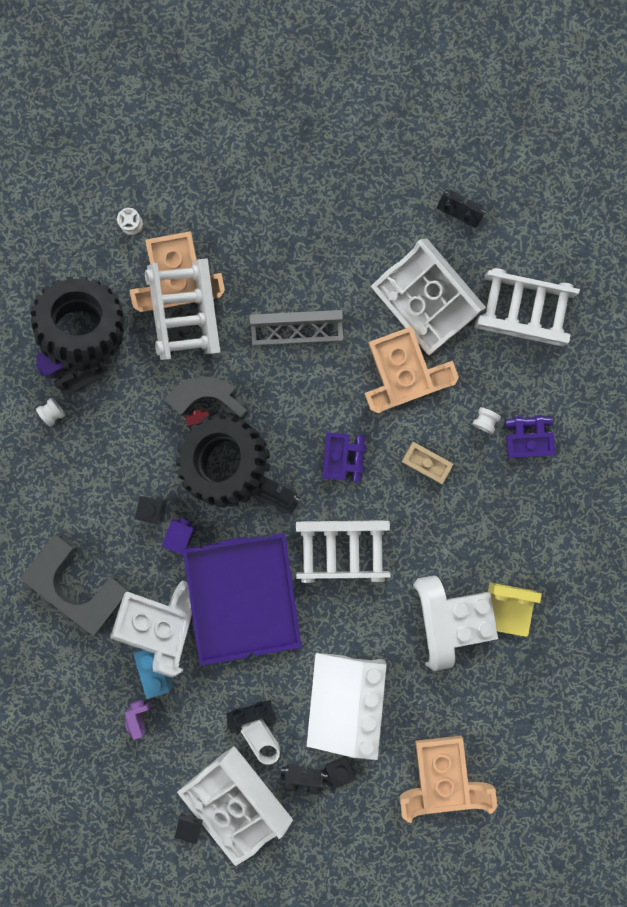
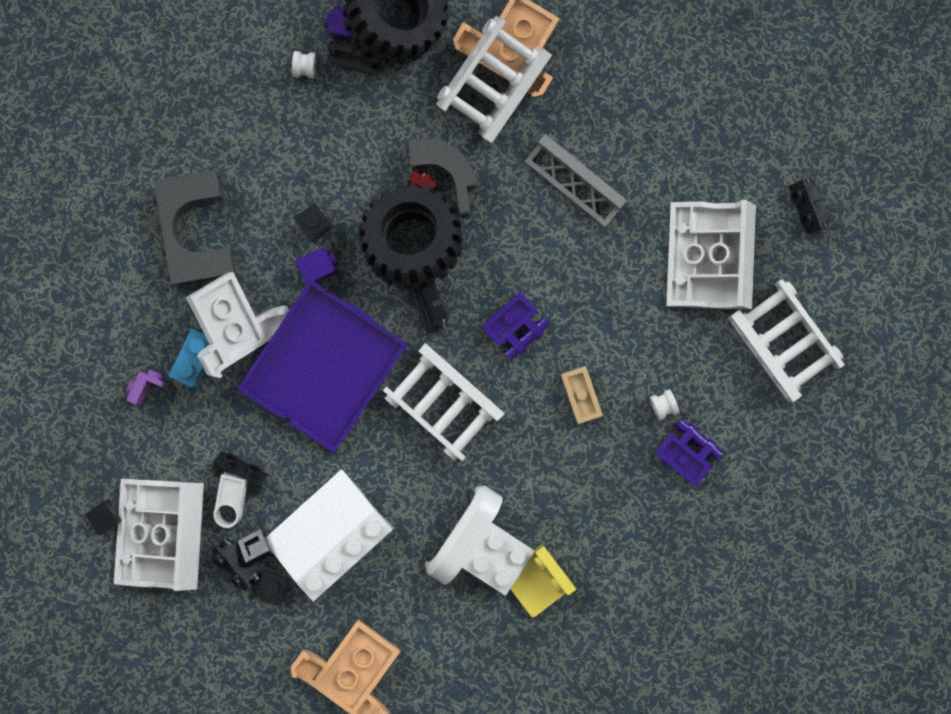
camera: 45 degrees right, 0 degrees up
(306, 757) = (255, 547): none -> plate
(405, 371) = (632, 300): light nougat piece -> none

